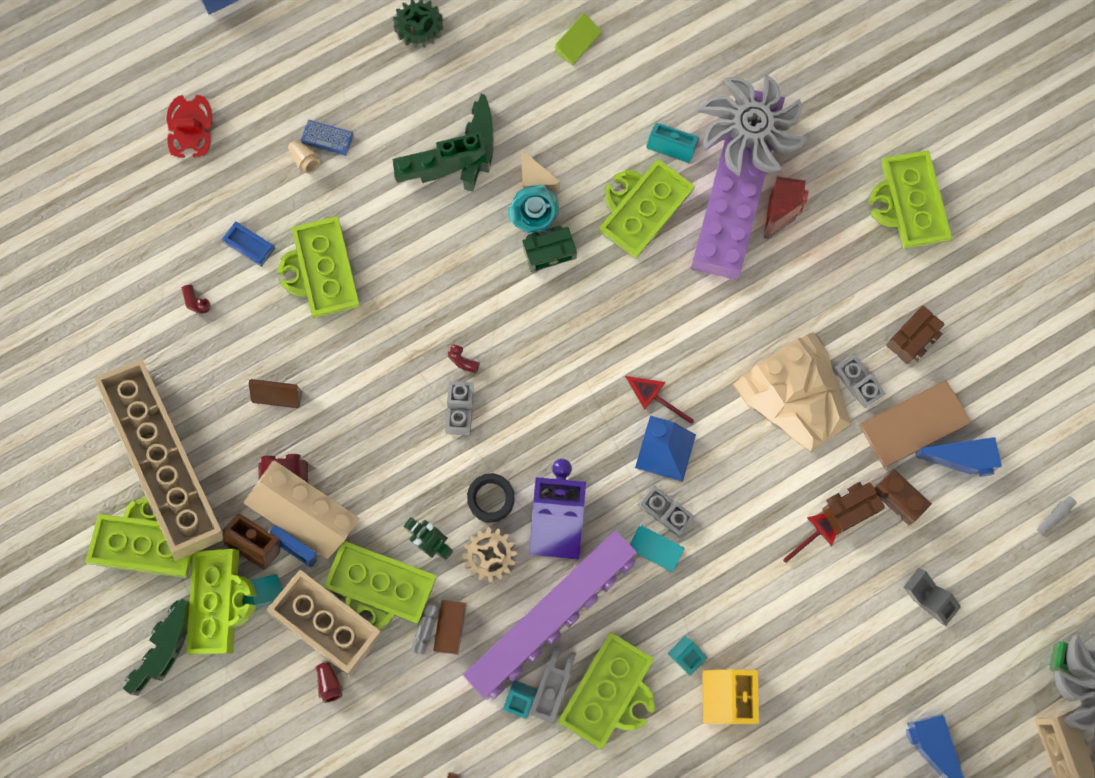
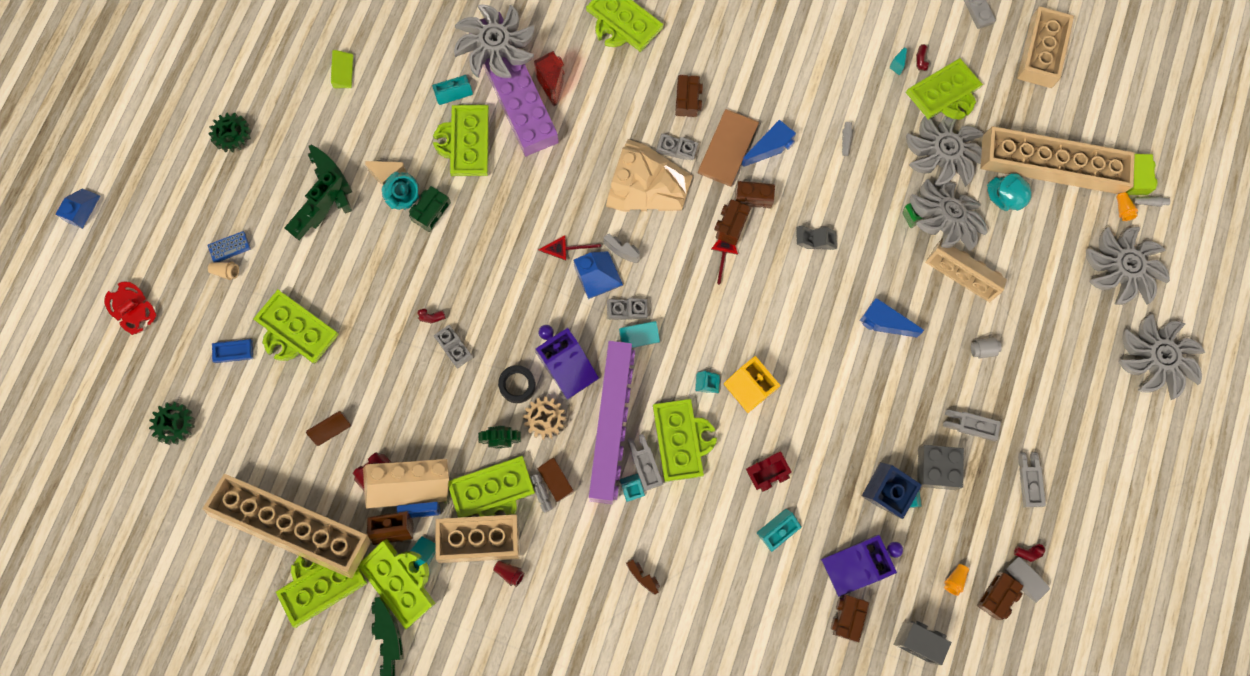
camera: 45 degrees left, 0 degrees up
(130, 263) = (162, 423): none -> dark green gear
(194, 303) = (226, 415): dark red arm -> none
(713, 449) = (626, 251): none -> light grey slope

